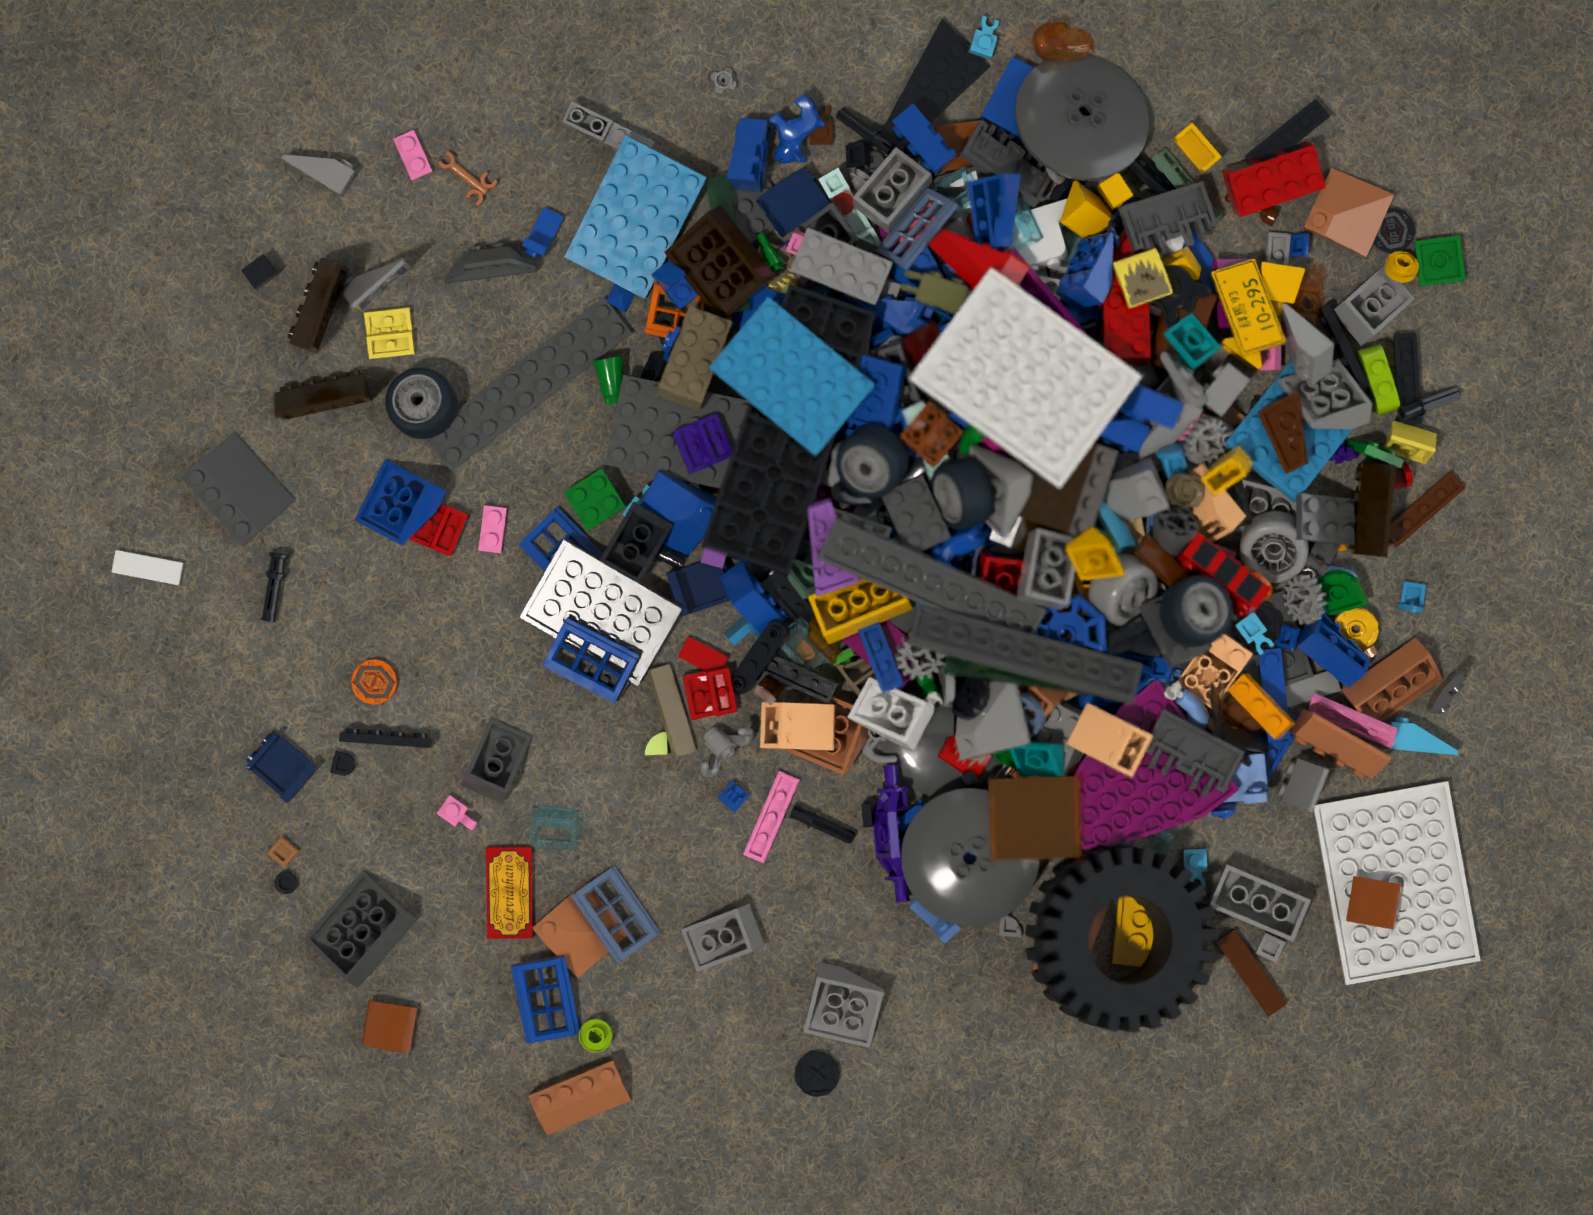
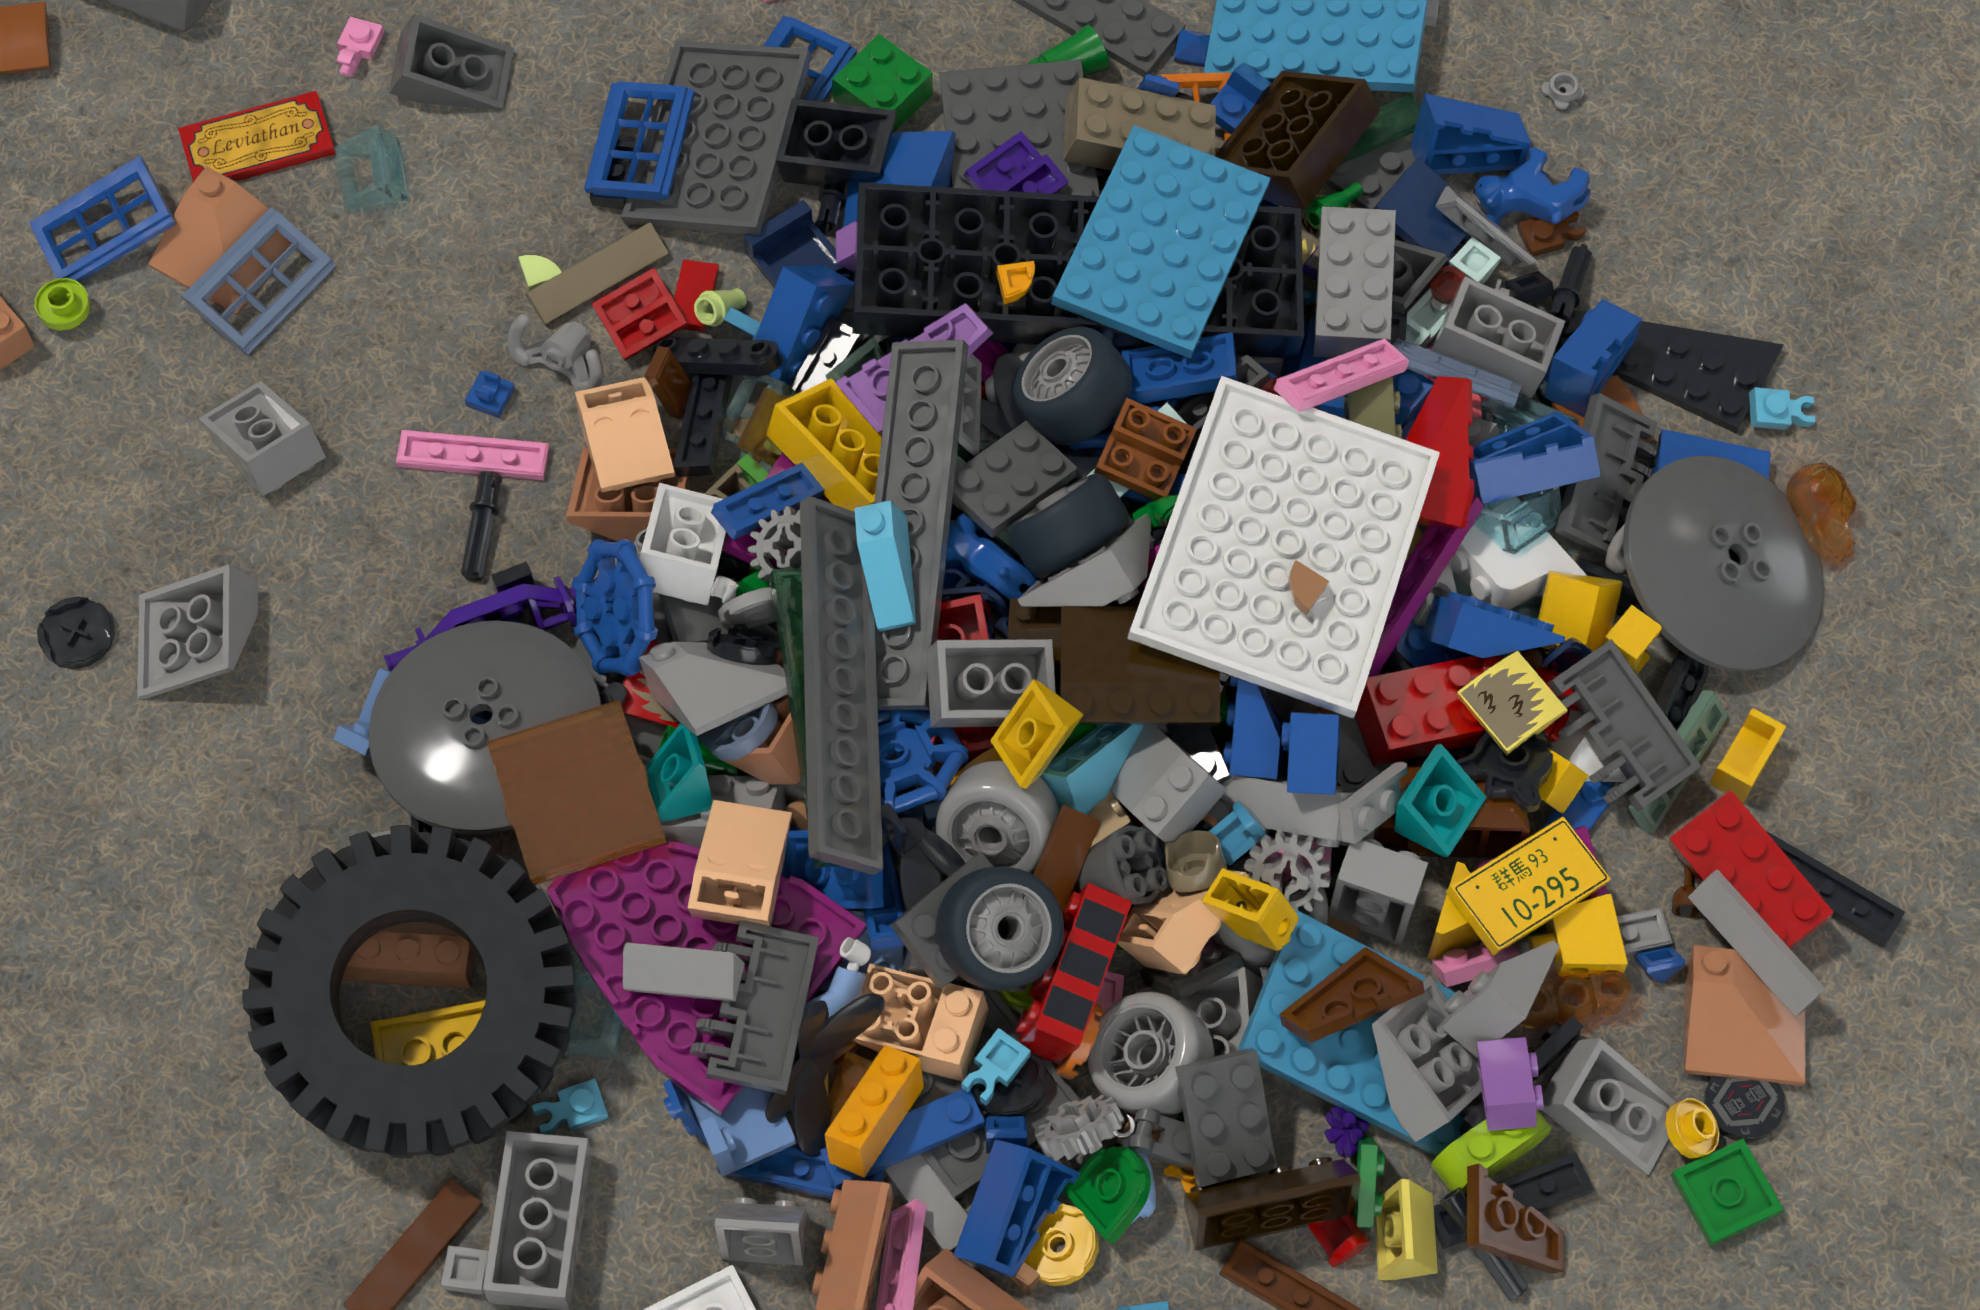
camera: 70 degrees right, 25 degrees down
(720, 644) = (713, 305): none -> yellowish green cone
(795, 473) = (1015, 280): none -> light orange tile
(815, 169) = (1483, 229): none -> light grey slope
(920, 765) = (614, 607): none -> blue plate
(921, 305) = (1341, 375): none -> bright pink tile
(957, 605) = (886, 563): none -> medium azure slope
(1060, 378) = (1305, 586): none -> medium nougat tile
(1162, 789) = (681, 971): none -> light grey slope
(1316, 193) = (1756, 943): none -> light grey tile
(1357, 362) = (1508, 1083): none -> medium lavender brick
(1428, 388) = (1508, 1228): none -> reddish brown wing

